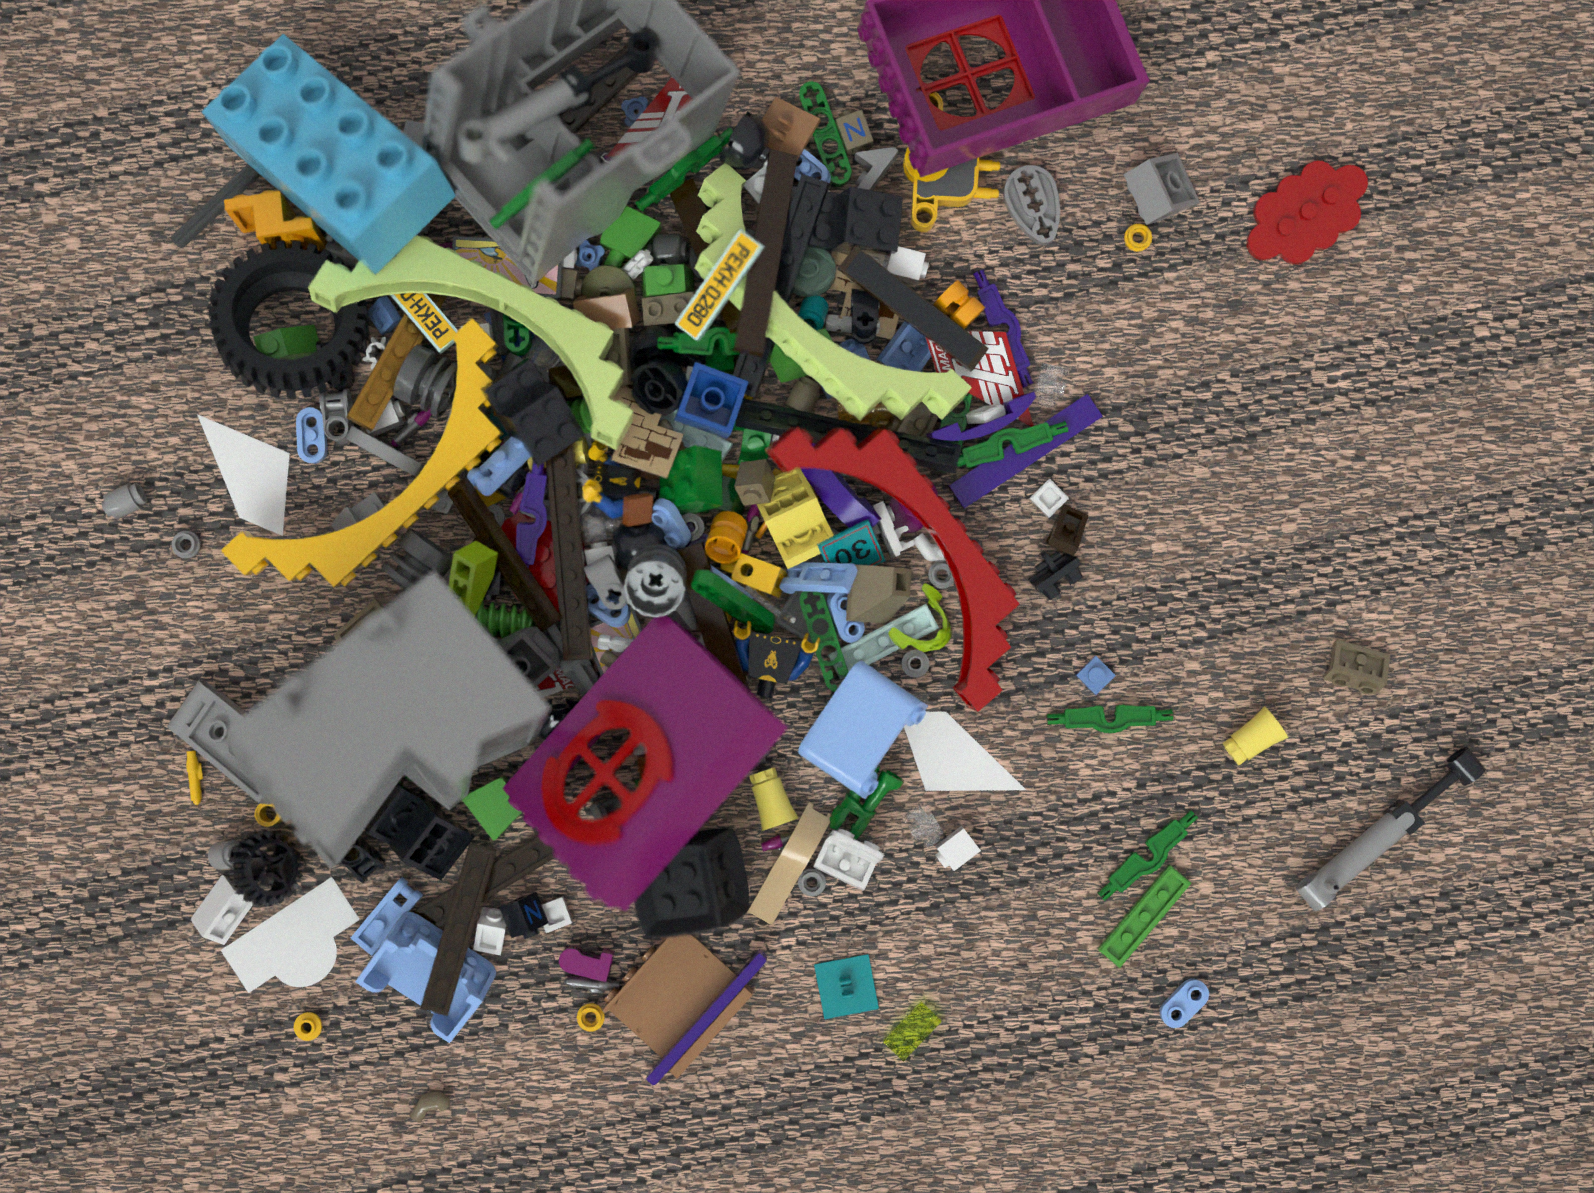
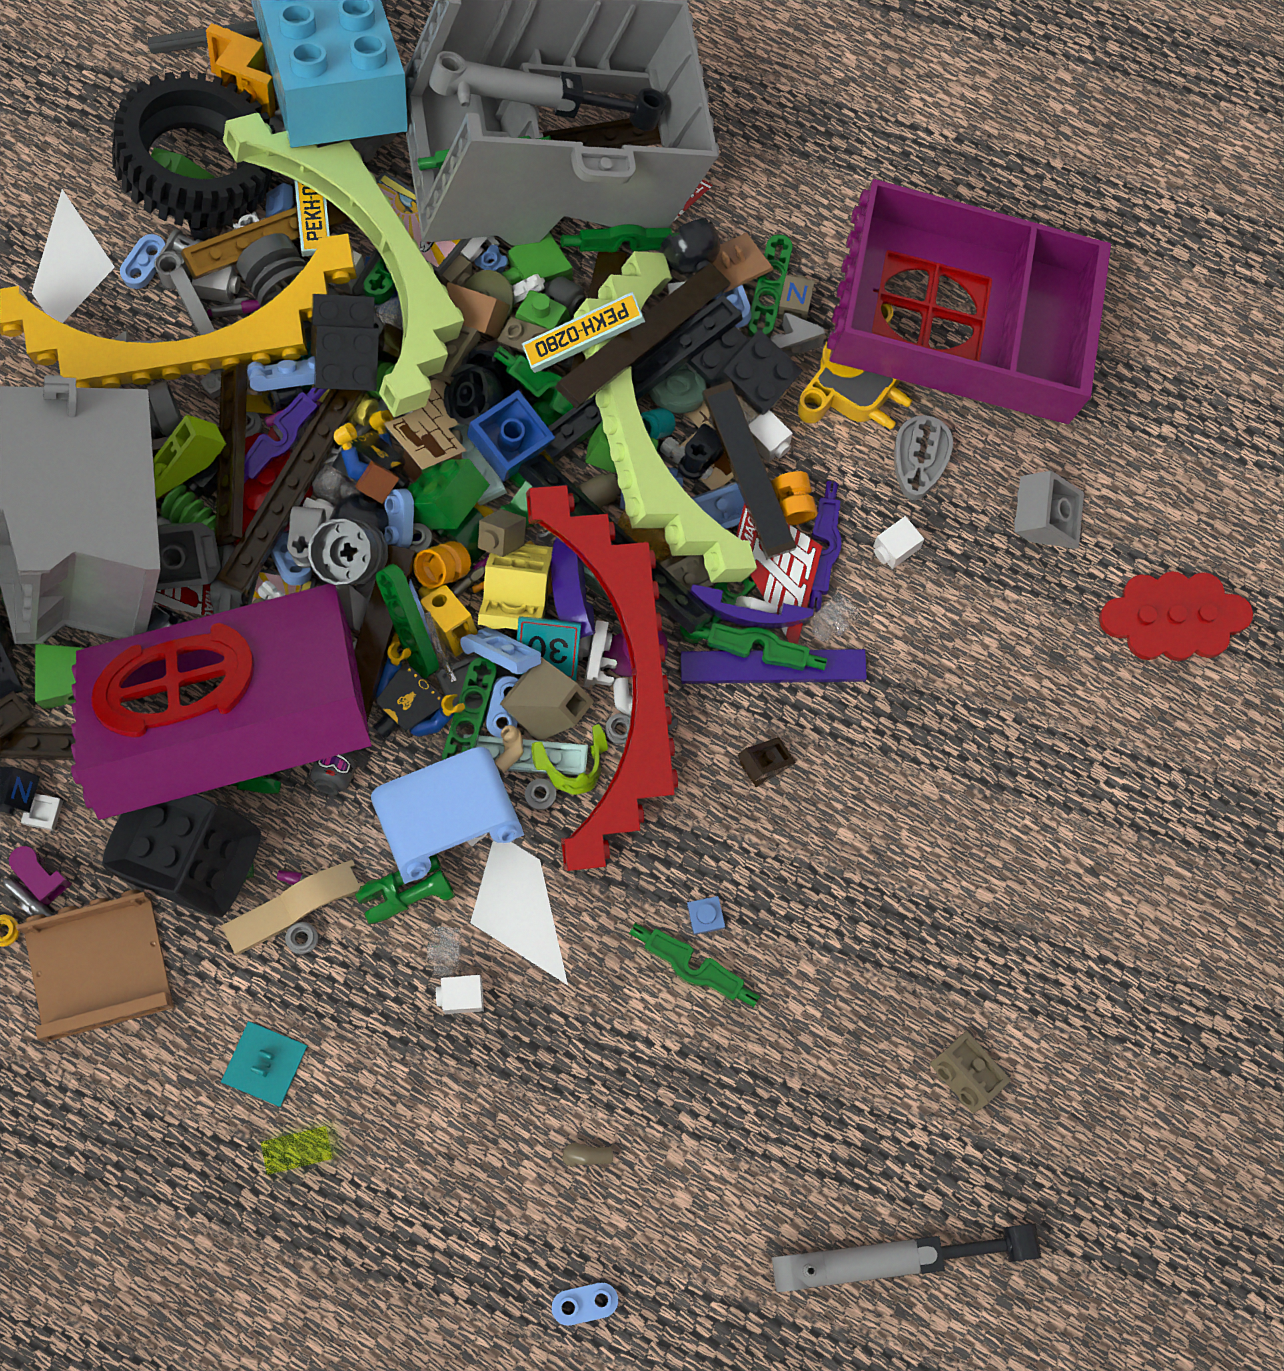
camera: 25 degrees right, 15 degrees down
(706, 1017) = (169, 984): dark purple tile -> none
(771, 799) = (317, 833): light yellow plant -> none
(848, 858) = (350, 933): white bracket -> none
(873, 643) = (512, 748): none -> tan arm
(1049, 498) = (768, 722): white tile -> none
(1053, 569) = (743, 793): black hips -> none
(1061, 291) = (898, 543): none -> white brick
(1120, 904) = (581, 1154): none -> dark tan arm
(1136, 866) = (626, 1129): green piece -> none
(1140, 229) = (1003, 534): yellow plate -> none
(1144, 916) = (601, 1186): bright green tile -> none
(1254, 737) = (824, 1073): light yellow plant -> none

